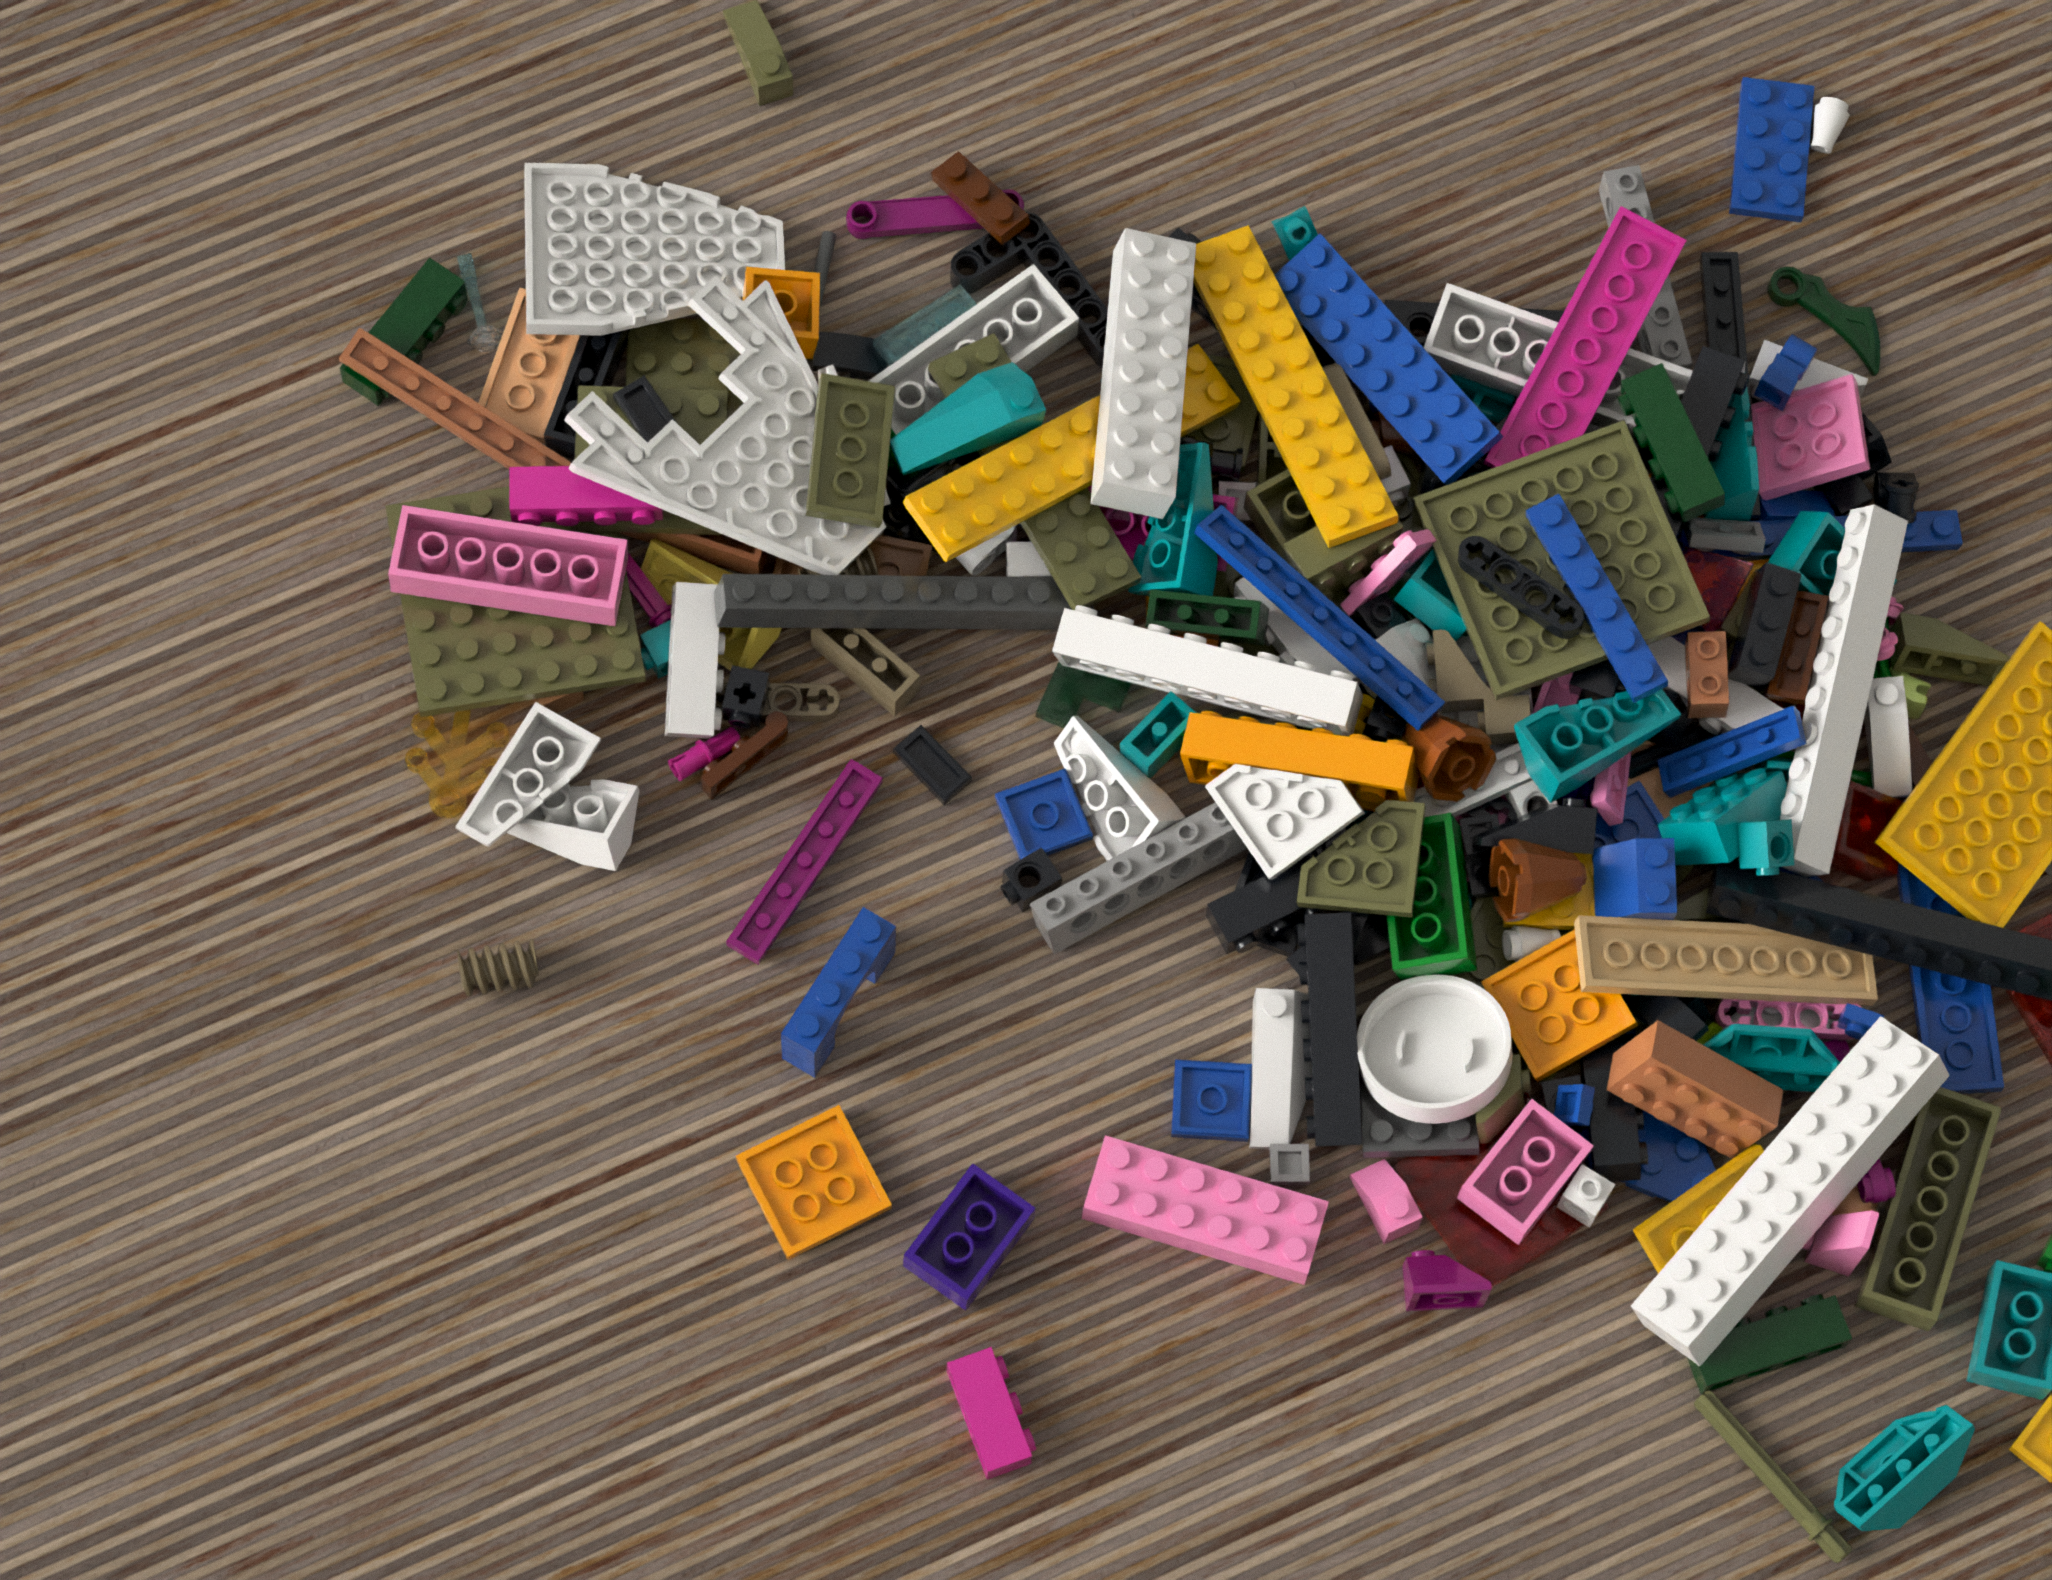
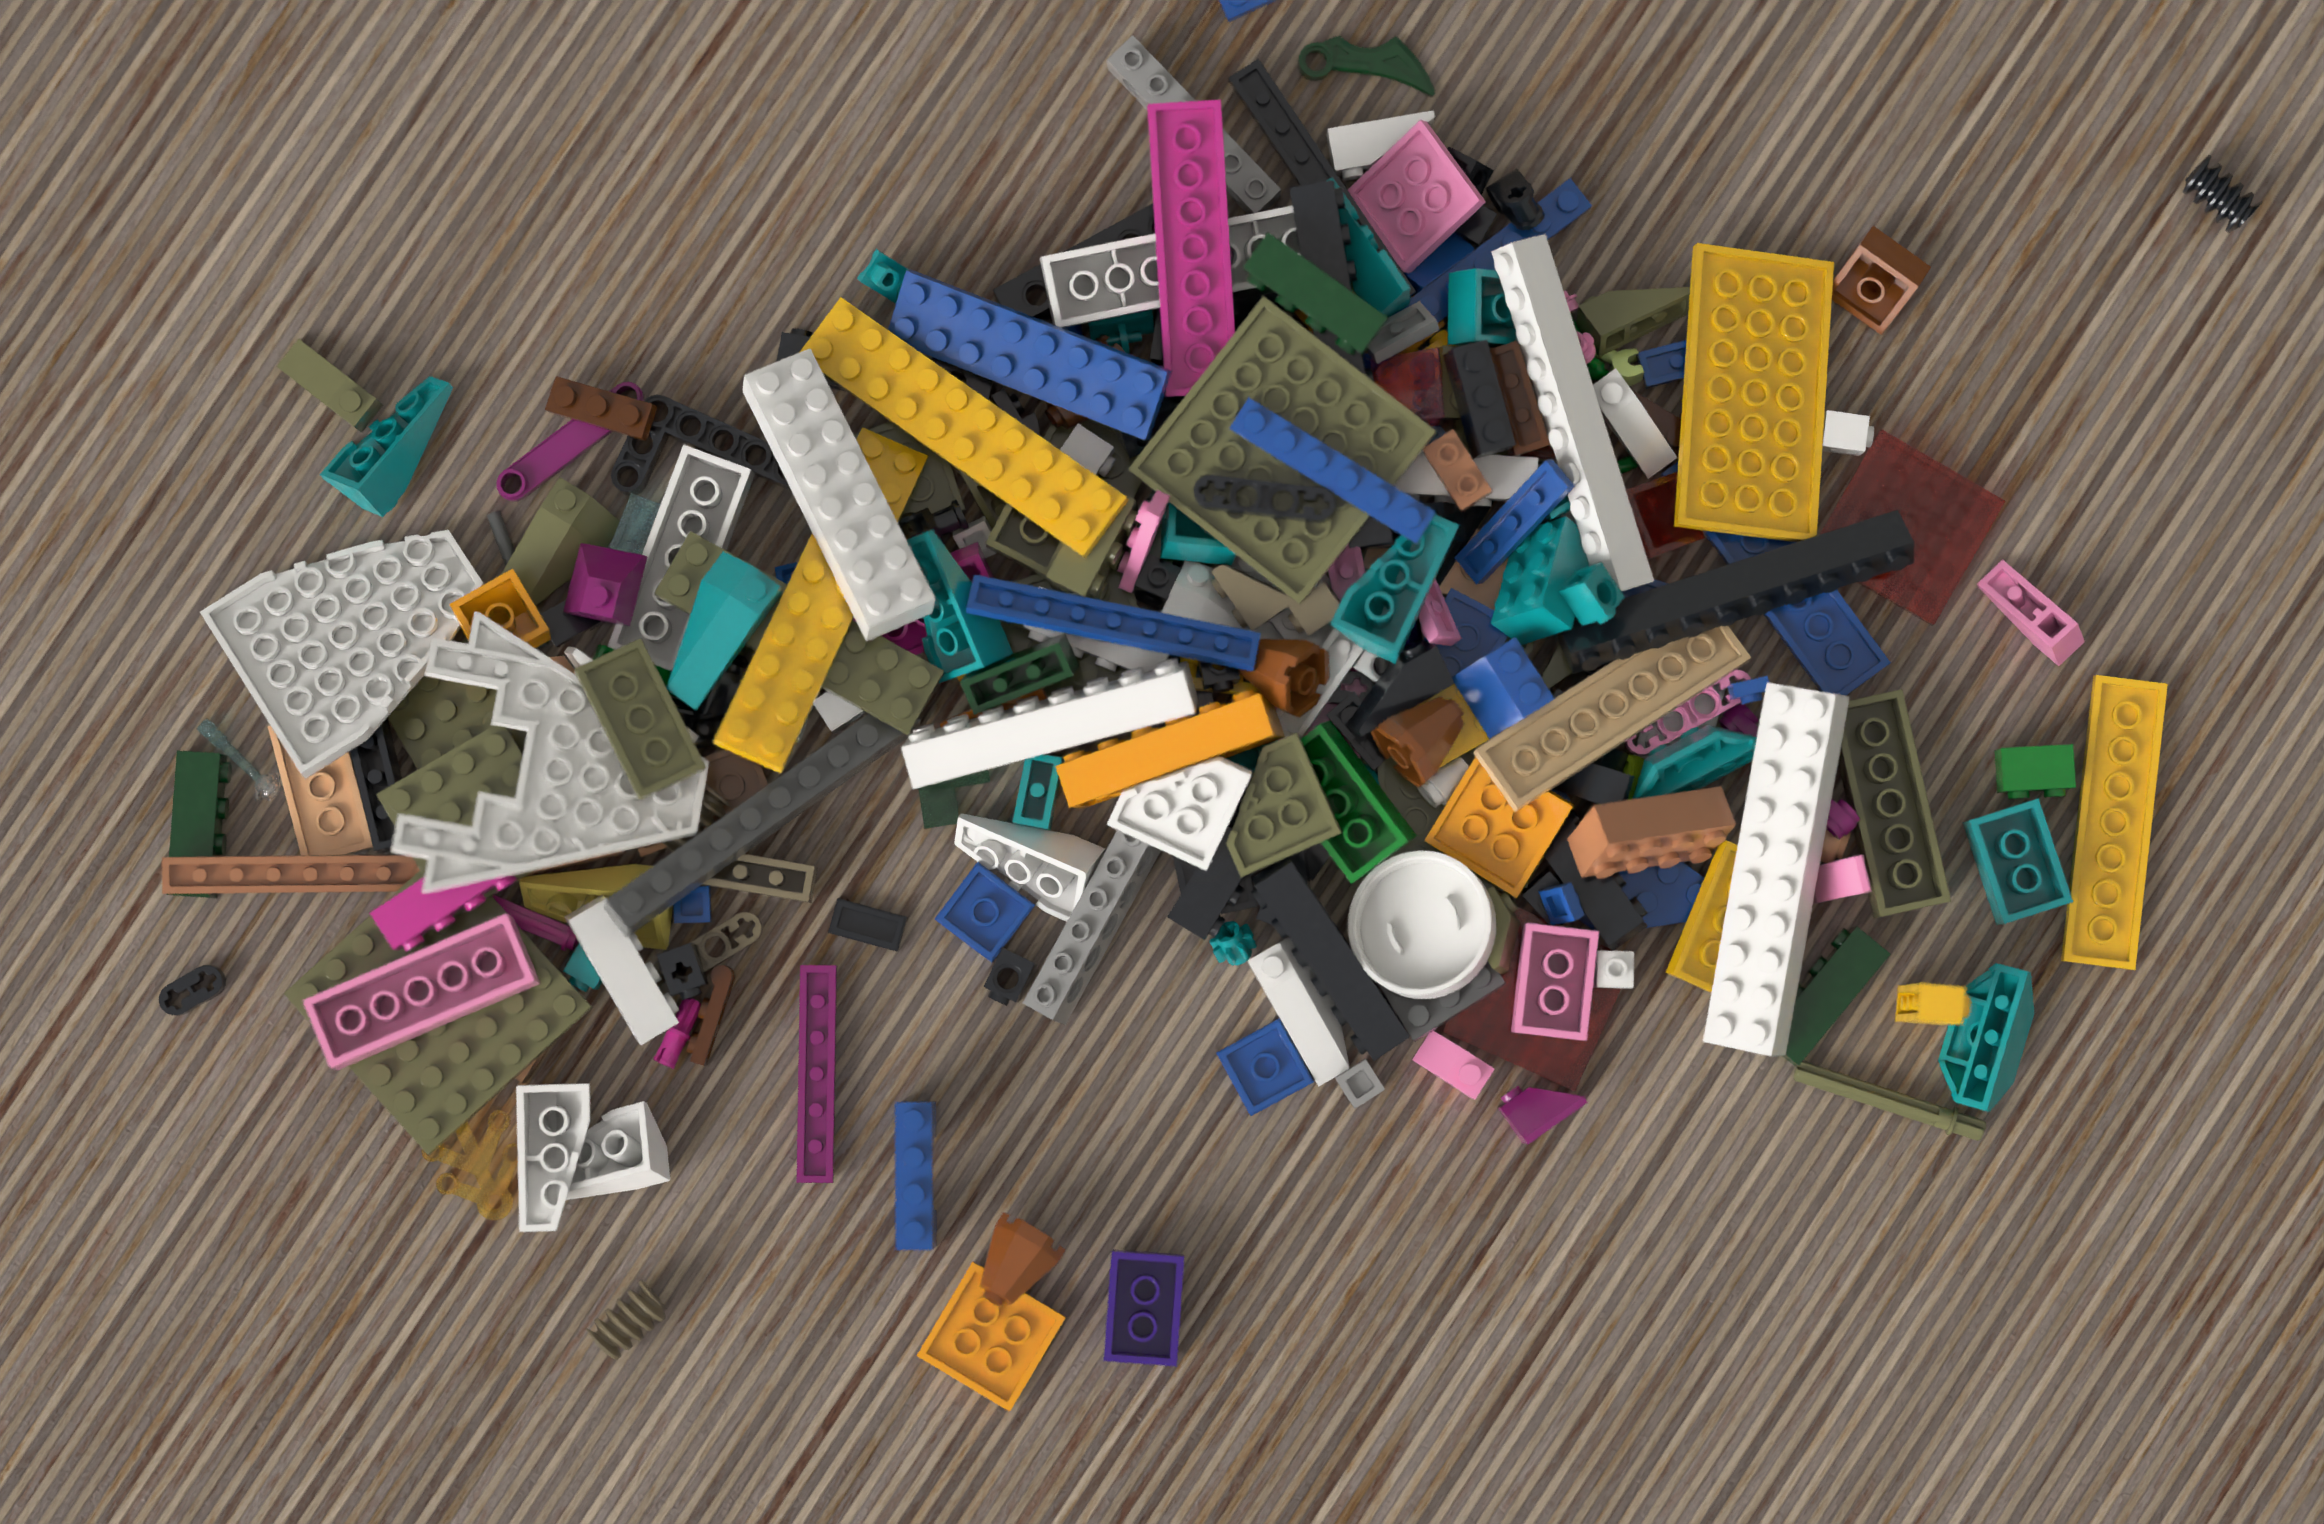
camera: 25 degrees left, 15 degrees up
(305, 467) = (195, 998): none -> black beam
(643, 408) = (449, 786): black tile -> none
(760, 139) = (384, 461): none -> teal wedge
(788, 653) = (694, 907): none -> blue plate
(876, 284) = (552, 540): none -> olive wedge
(883, 1121) = (1016, 1260): none -> dark orange cone
(890, 338) = (605, 584): none -> magenta slope
(991, 1412) = (1248, 1436): dark pink brick -> none
(1204, 1210) = (1316, 1165): bright pink brick -> none
(1251, 971) = (1233, 943): none -> teal gear
(1358, 419) = (1036, 422): dark tan beam -> none
(1785, 371) = (1364, 146): blue leg -> none
(1865, 1395) = (1931, 1004): none -> yellow brick
(1945, 711) = (1663, 364): none -> blue plate

